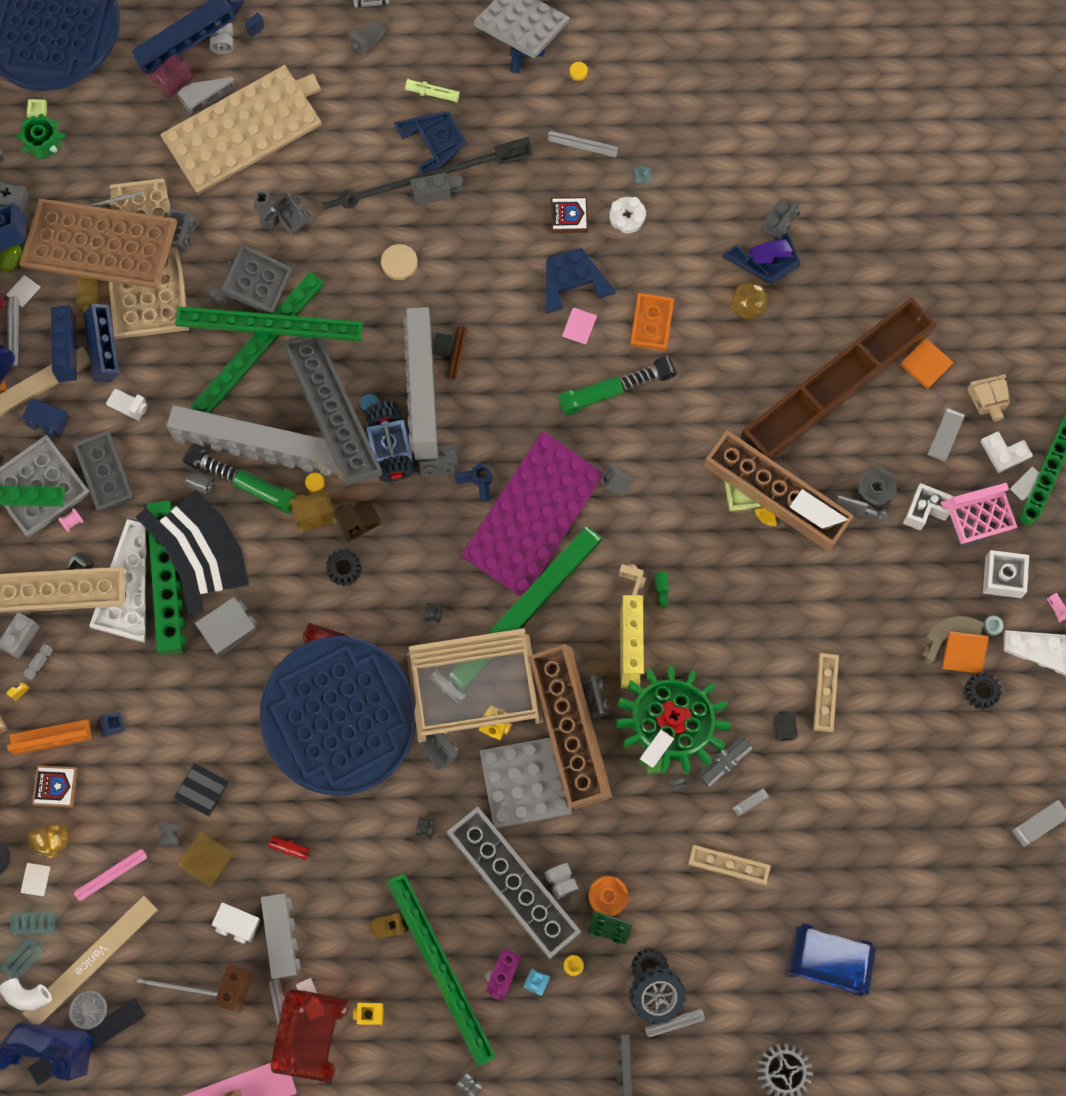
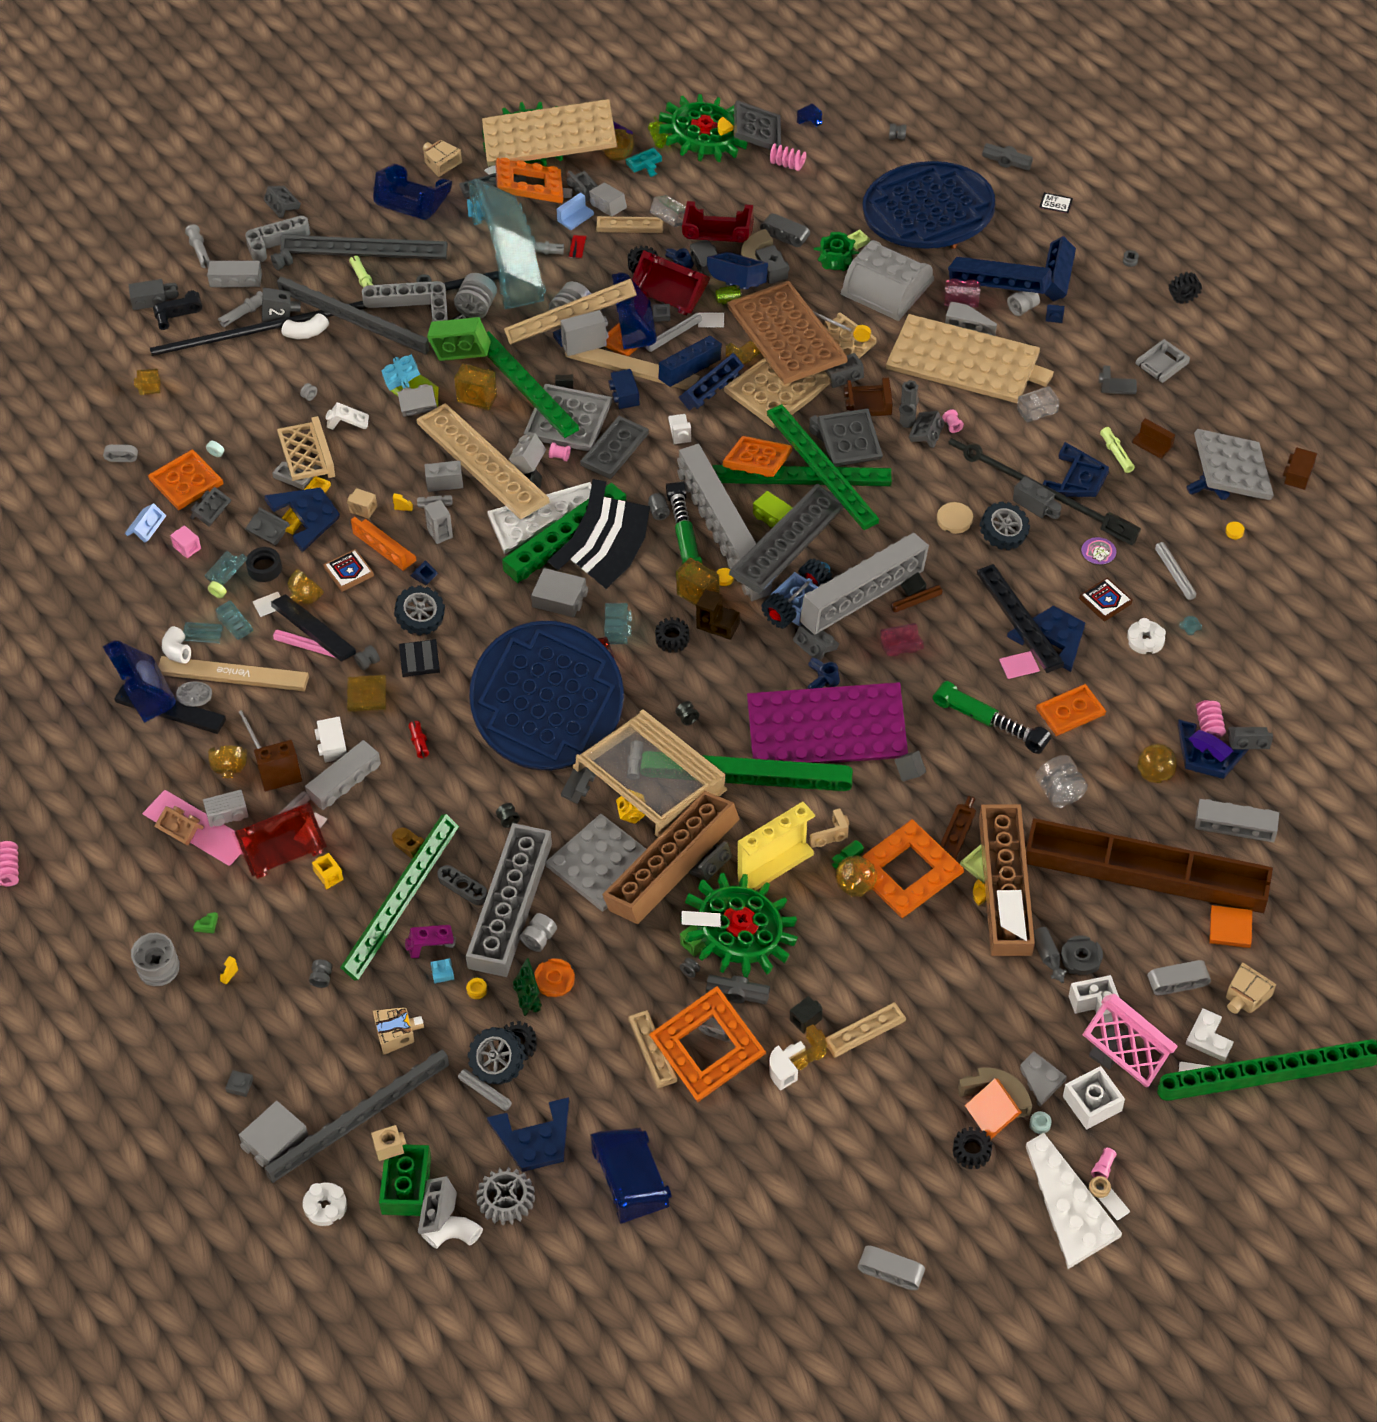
camera: 55 degrees right, 20 degrees down
(55, 549) = (527, 453): none -> light grey brick
(70, 676) = (438, 521): none -> light grey brick
(99, 860) = (313, 627): none -> black tile
(108, 123) = (886, 280): none -> light grey container
(153, 186) = (862, 333): none -> yellow tile
(154, 775) = (413, 595): none -> black wheel
(190, 1028) = (227, 760): none -> clear yellow cylinder
(215, 366) = (757, 456): none -> orange plate
(222, 232) = (875, 398): none -> reddish brown panel
(238, 1060) = (225, 808): none -> light grey brick
(281, 396) = (770, 509): none -> lime brick
(295, 602) = (616, 623): none -> clear light blue piece
(301, 187) = (953, 421): none -> bright pink bush
(338, 111) = (1038, 404): none -> clear brick
(438, 245) = (1012, 518): none -> black wheel
(444, 56) = (1154, 438): none -> reddish brown panel
(477, 899) = (458, 877): none -> dark grey beam
(492, 396) = (901, 639): none -> clear pink bracket
(516, 182) = (1098, 550): none -> sticker
(540, 291) = (1020, 618): none -> black tile
(568, 1058) = (395, 1028): none -> torso
(686, 527) = (944, 868): none -> orange plate
(690, 597) = (856, 876): none -> clear yellow cylinder
(707, 500) = (958, 828): none -> reddish brown plate
(721, 382) = (1061, 781): none -> clear wheel
(734, 845) = (705, 1082): none -> orange plate
(743, 232) = (1211, 718): none -> bright pink piece
(752, 1014) = (537, 1144): none -> dark blue wing
(813, 735) = (817, 1051): none -> clear yellow bracket
(817, 780) = (780, 1066): none -> white brick
(842, 286) = (1237, 820): none -> light grey brick
(957, 595) = (1041, 1077): none -> light grey wing

